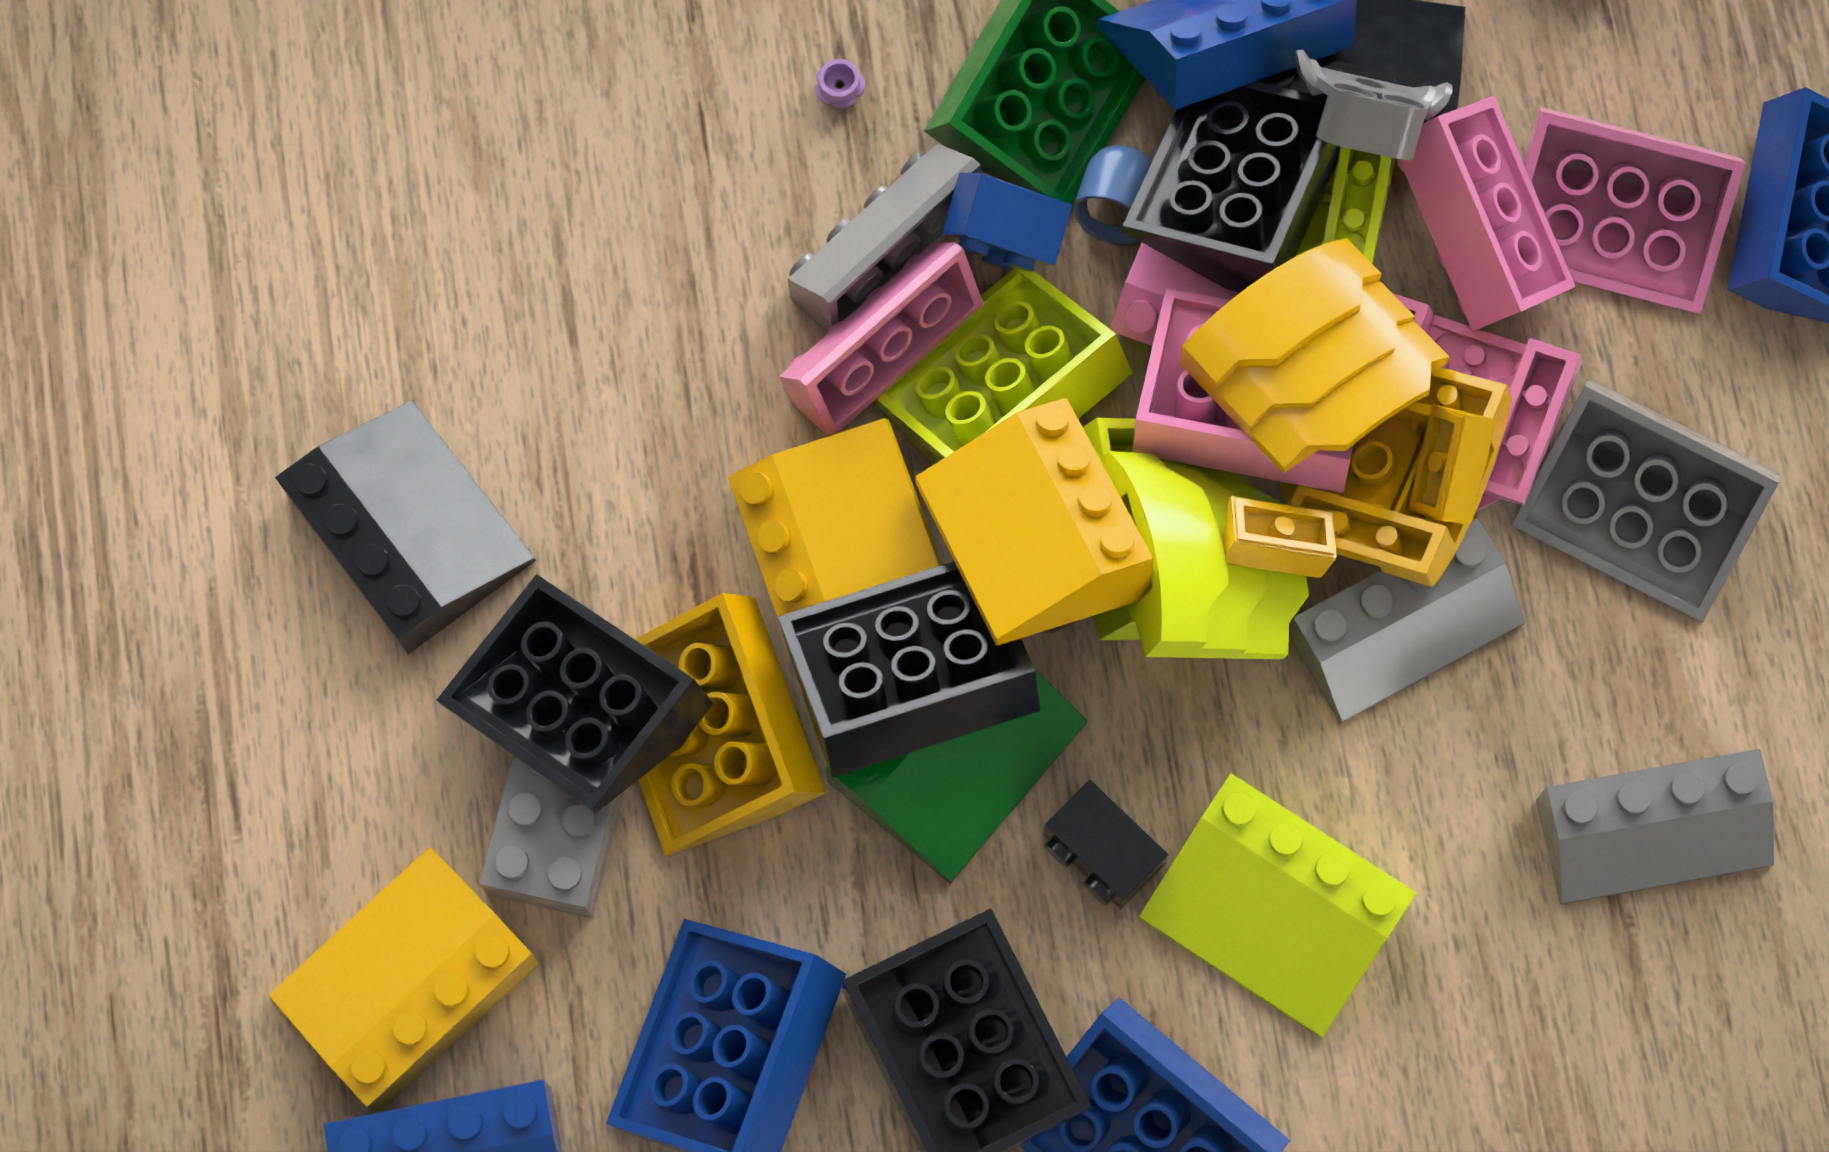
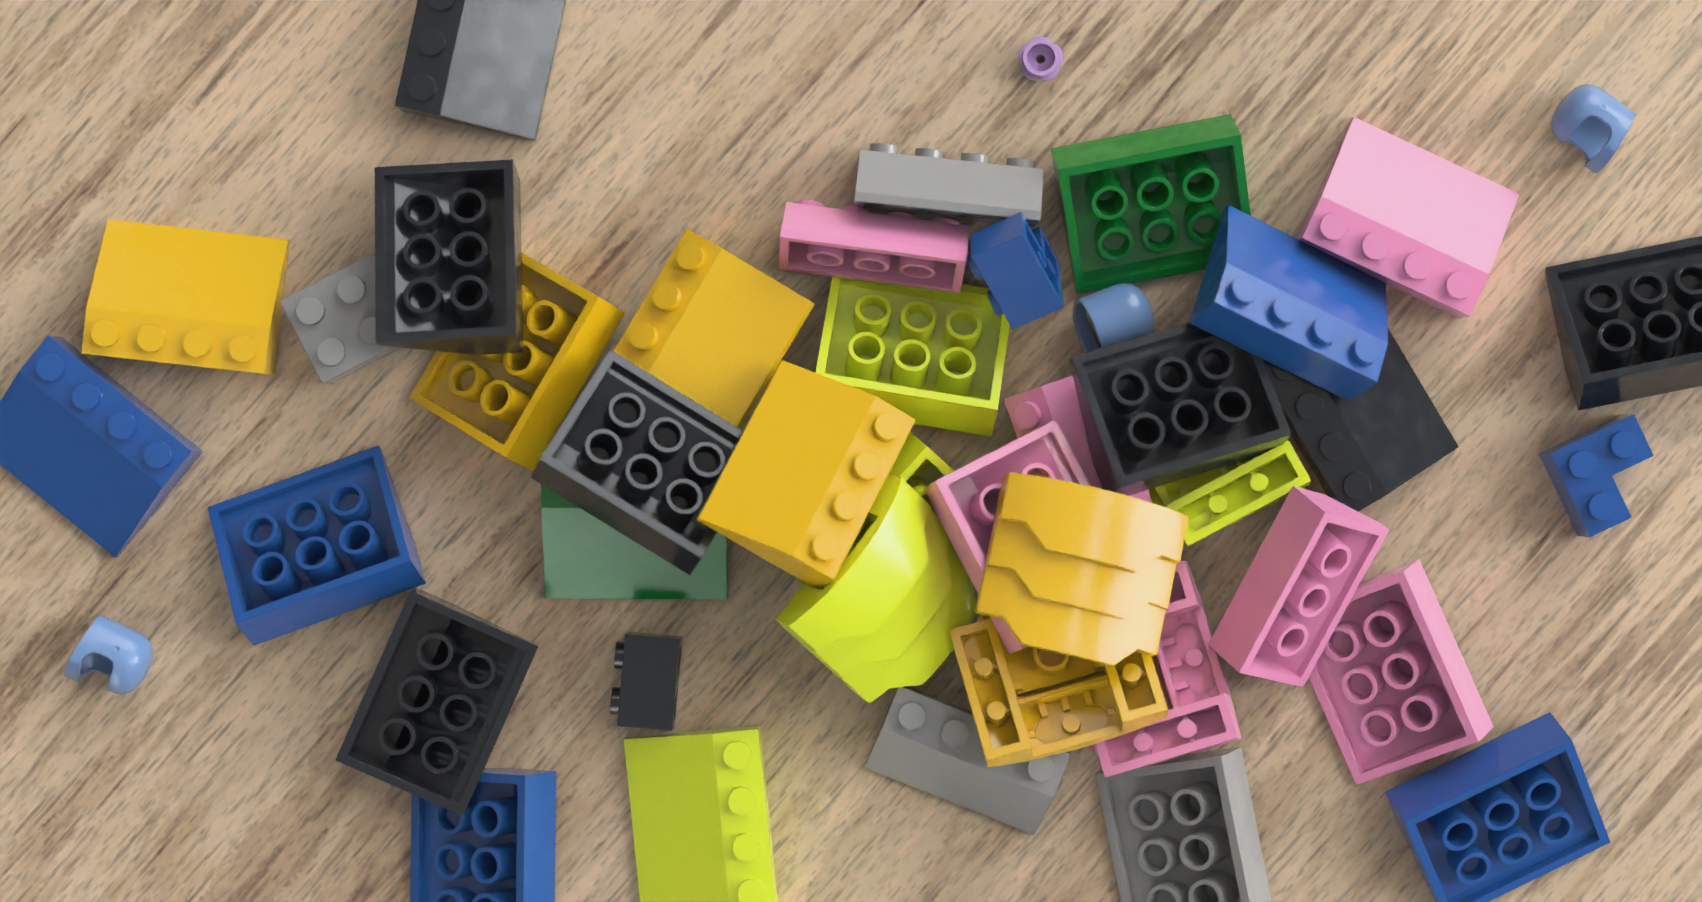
camera: 45 degrees right, 15 degrees up
(1279, 537) = (935, 639): yellow slope -> none
(1371, 112) = (1288, 468): light grey piece -> none
(1451, 465) = (1082, 714): yellow slope -> none

